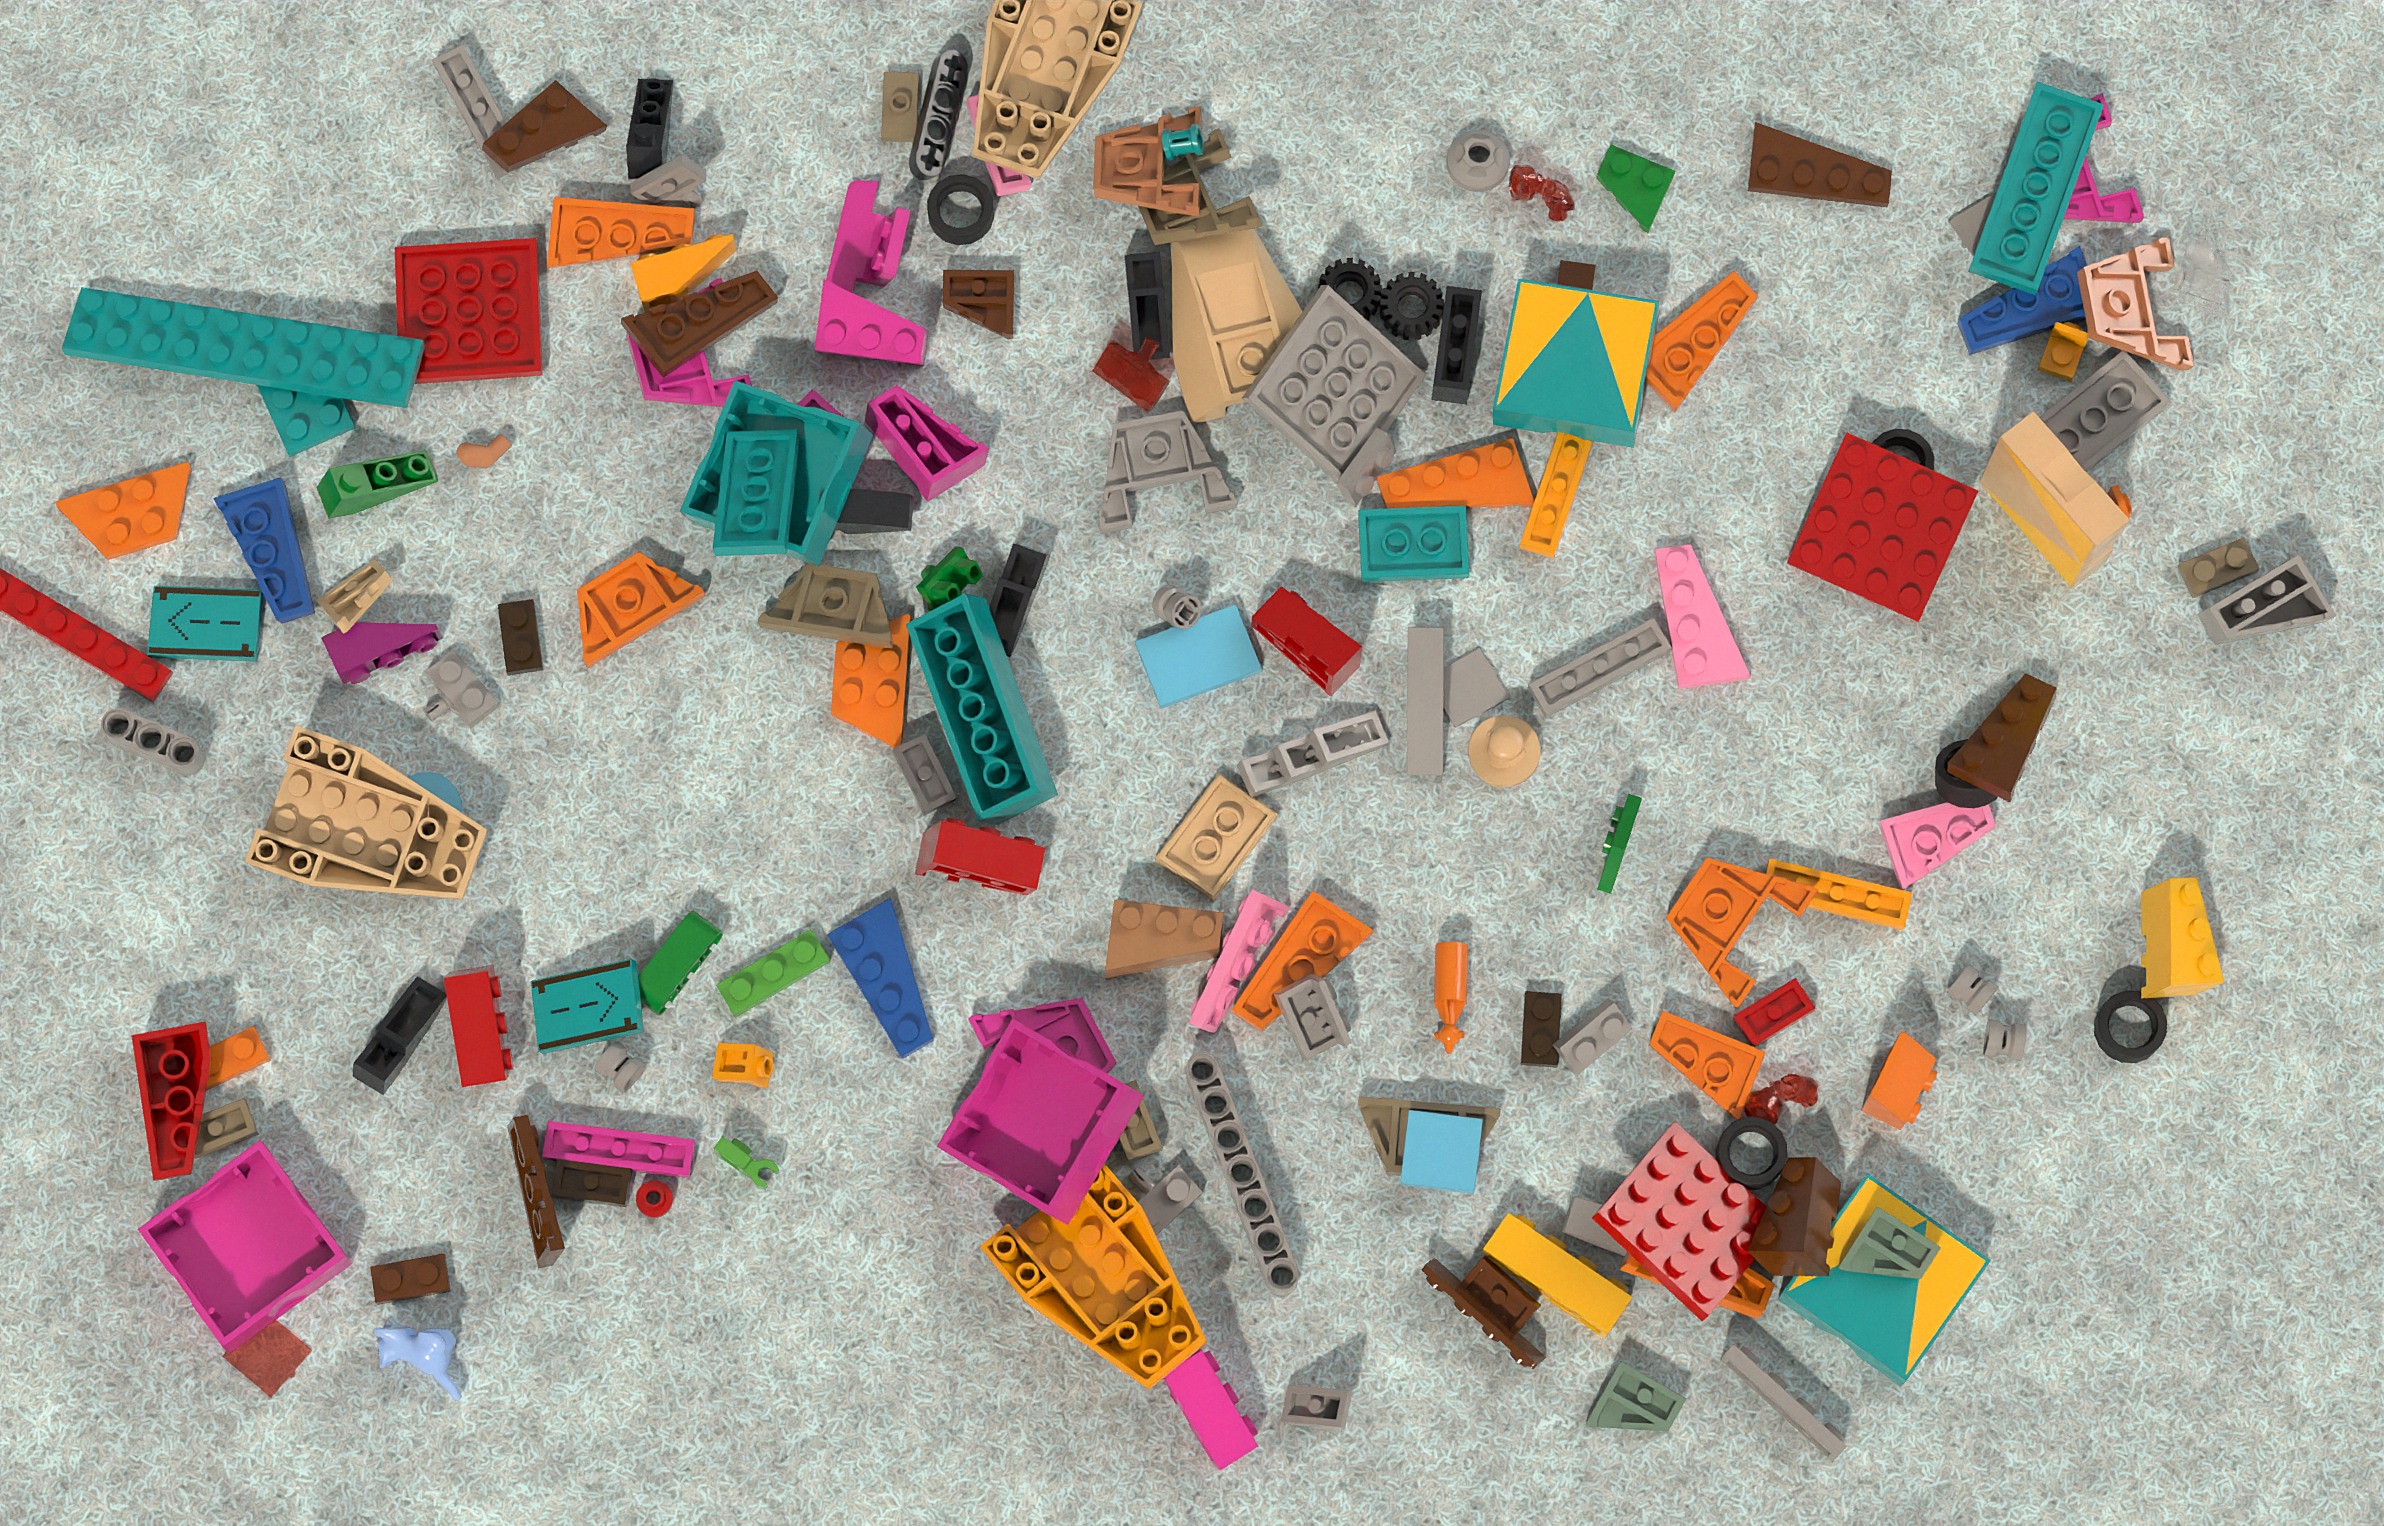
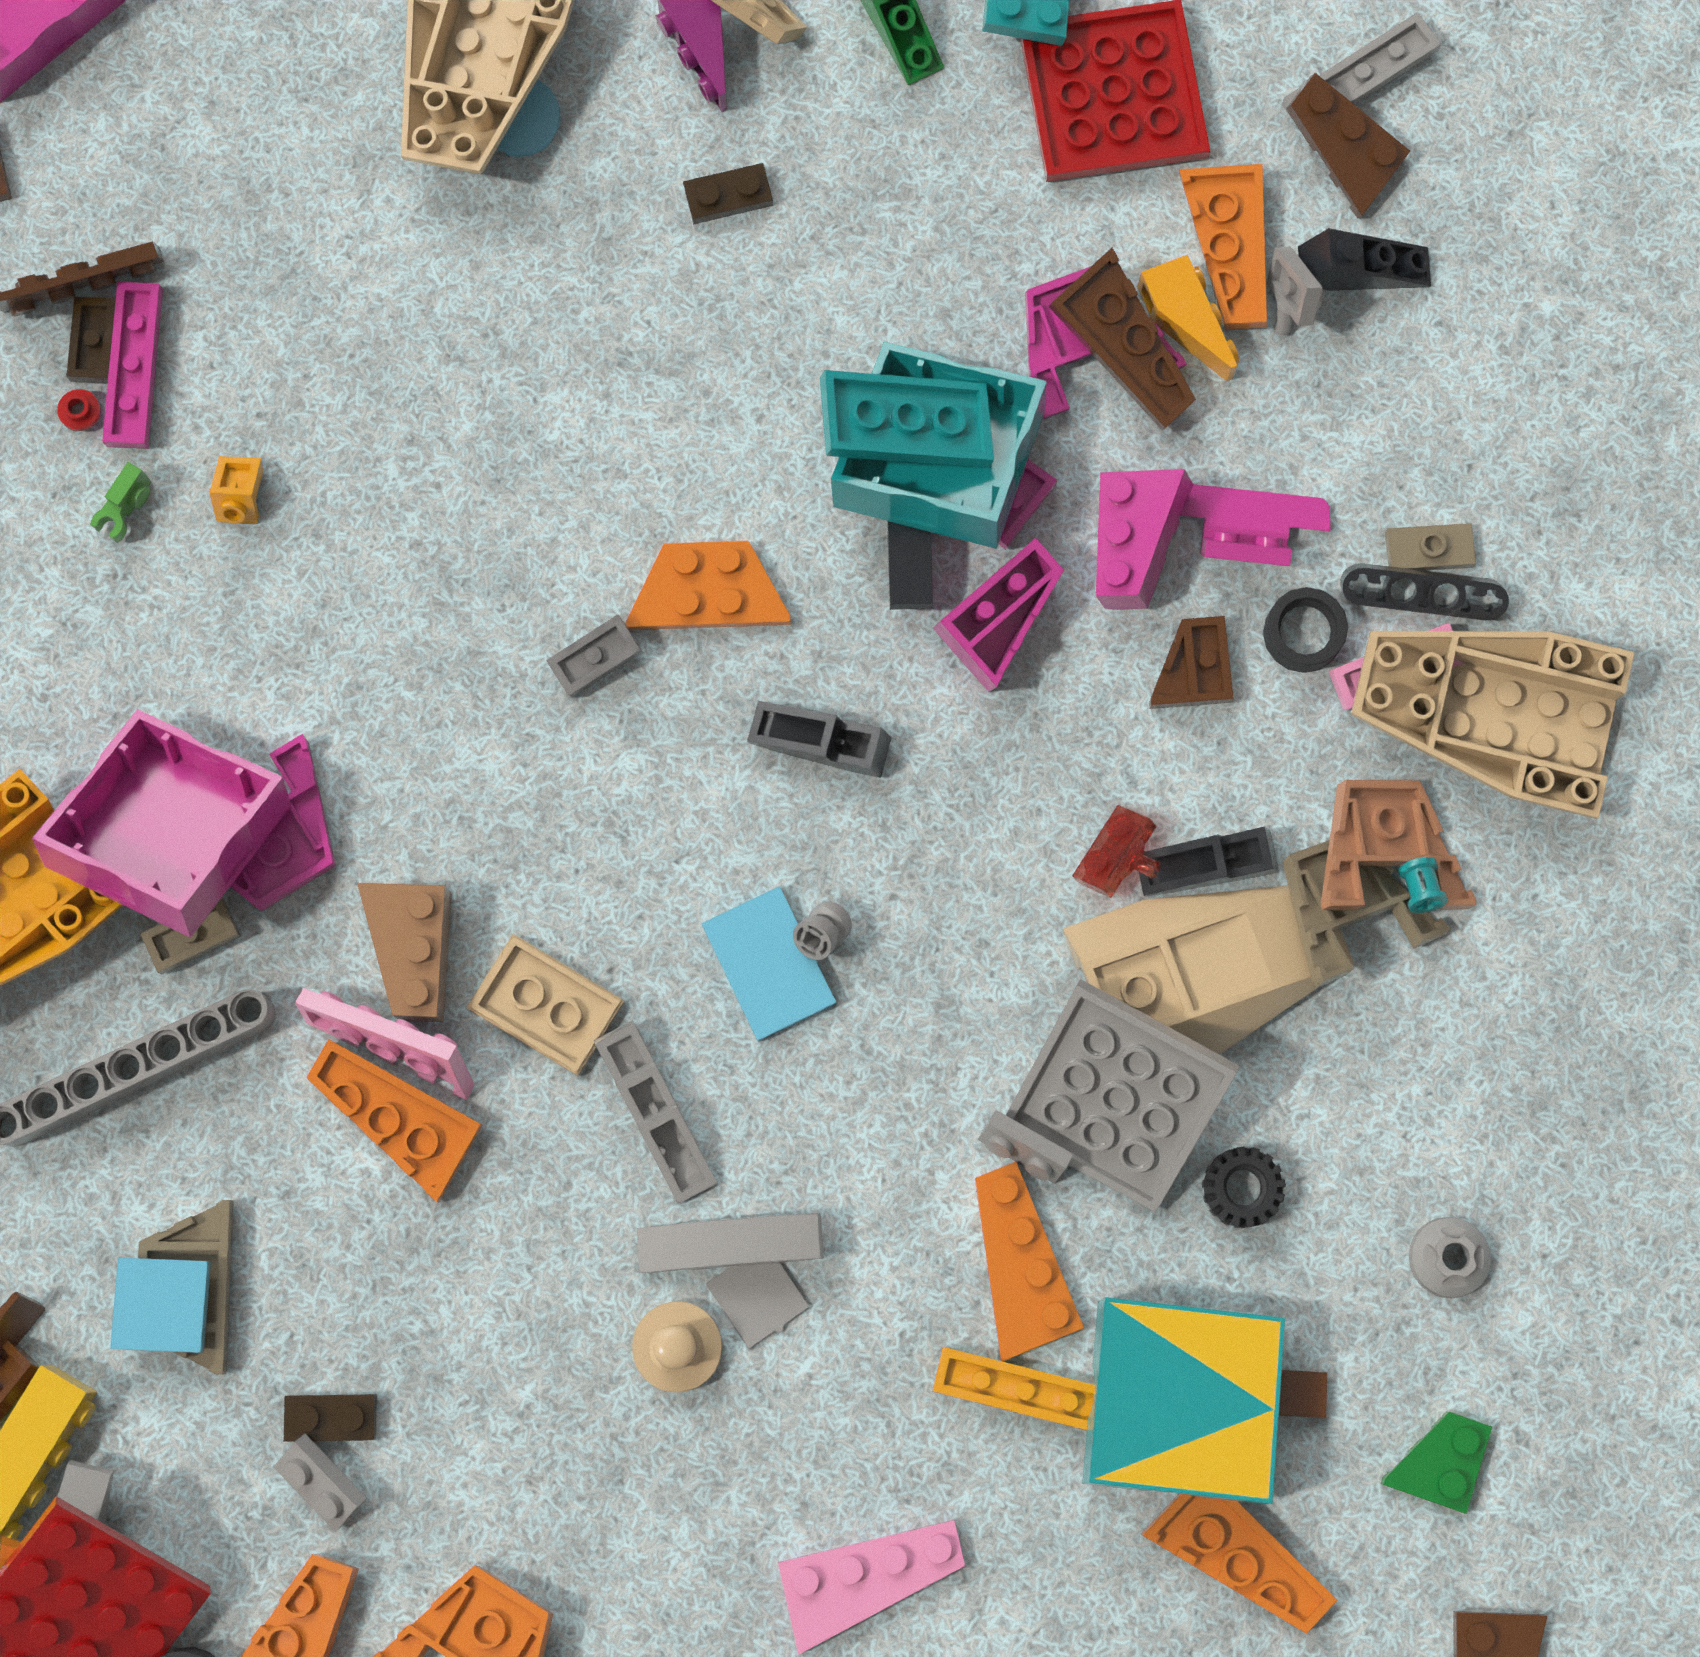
camera: 85 degrees right, 5 degrees up
(399, 1035) = (252, 117): black slope -> none
(459, 691) = (657, 134): light grey plate -> none
(478, 1025) = (265, 193): red wedge -> none
(480, 455) = (940, 127): nougat arm -> none
(587, 1006) = (291, 310): teal tile -> none
(620, 1067) = (226, 354): light grey wheel -> none
(629, 604) = (775, 305): orange wing -> none
(675, 960) = (353, 401): green beam -> none
(773, 973) = (349, 512): bright green plate -> none
(832, 606) = (790, 532): dark tan wing -> none
(882, 970) = (365, 629): blue wing -> none
(948, 578) = (831, 657): green hips -> none
(981, 709) = (670, 710): teal brick -> none
(981, 856) = (492, 729): red wedge -> none
(1157, 454) = (1017, 888): light grey wing -> none
(1165, 1197) = (100, 978): light grey plate -> none
(1308, 639) = (796, 1092): red wedge -> none
(1313, 1016) = (321, 1133): light grey bracket -> none
(1359, 274) = (1279, 1116): black tyre -> none
(1413, 543) = (933, 1213): teal plate -> none
(1450, 989) = (369, 1302): orange wheel -> none
(1456, 345) = (1194, 1246): black brick -> none
(1526, 183) = (1425, 1320): clear red arm -> none
(1599, 667) = (793, 1460): light grey plate -> none
(1617, 842) = (558, 1497): green wing -> none

